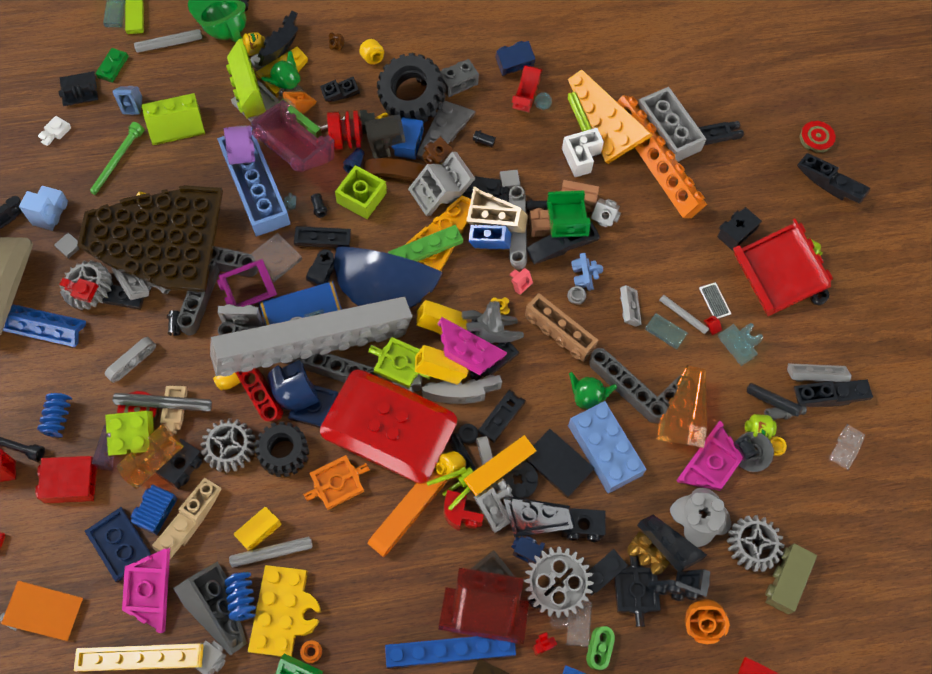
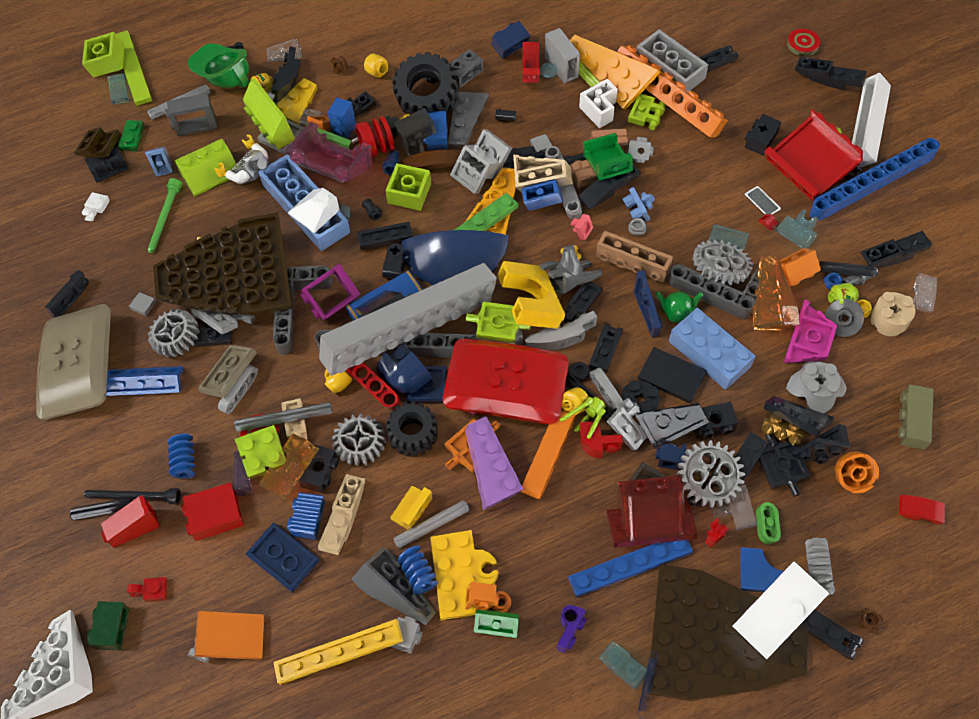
camera: 10 degrees left, 5 degrees down
(44, 208) = (109, 274): light blue brick -> none
(76, 65) = (97, 143): none -> dark brown slope
(82, 290) = (173, 336): red plate -> none
(124, 338) = (227, 371): none -> dark tan tile
(147, 589) = (325, 587): dark pink wing -> none
(173, 50) = (189, 105): none -> dark grey window
(173, 326) = (269, 346): black pin -> none
(212, 128) = (249, 166): none -> torso
(239, 145) = (283, 169): medium lavender brick -> none
(245, 316) = (332, 319): light grey plate -> none
(258, 194) = (315, 209): none -> white slope
(277, 256) = (351, 260): clear tile -> none
(279, 11) = (277, 52): none -> clear slope
(284, 74) = (301, 102): green piece -> none
(287, 311) = (379, 301): none -> black tile
(290, 644) = (481, 596): none -> orange brick
(318, 101) = (342, 118): none -> blue brick
(345, 513) = (492, 468): none -> medium lavender wedge
(436, 152) = (467, 134): reddish brown brick -> none
(468, 348) = (557, 293): dark pink wing -> none
(499, 465) = (621, 387): light orange tile -> none
(557, 384) = (646, 304): none -> dark blue wing
(561, 89) = (562, 54): none -> light grey brick
(624, 168) = (642, 108): none -> lime plate
(630, 306) = (690, 224): light grey plate -> none
(649, 357) = (722, 262): none -> light grey gear
(684, 314) = (737, 218): light grey bar -> none
(725, 383) = (800, 266): none -> orange brick
(746, 448) = (837, 315): black bush -> none
(753, 559) = (871, 400): light grey gear -> none
(756, 404) = (832, 277): none -> blue plate
(805, 461) = (892, 313): none -> tan brick
(819, 373) = (877, 237): light grey plate -> none
(845, 303) = (874, 179): none -> blue beam
(857, 241) = (871, 117): none -> white brick

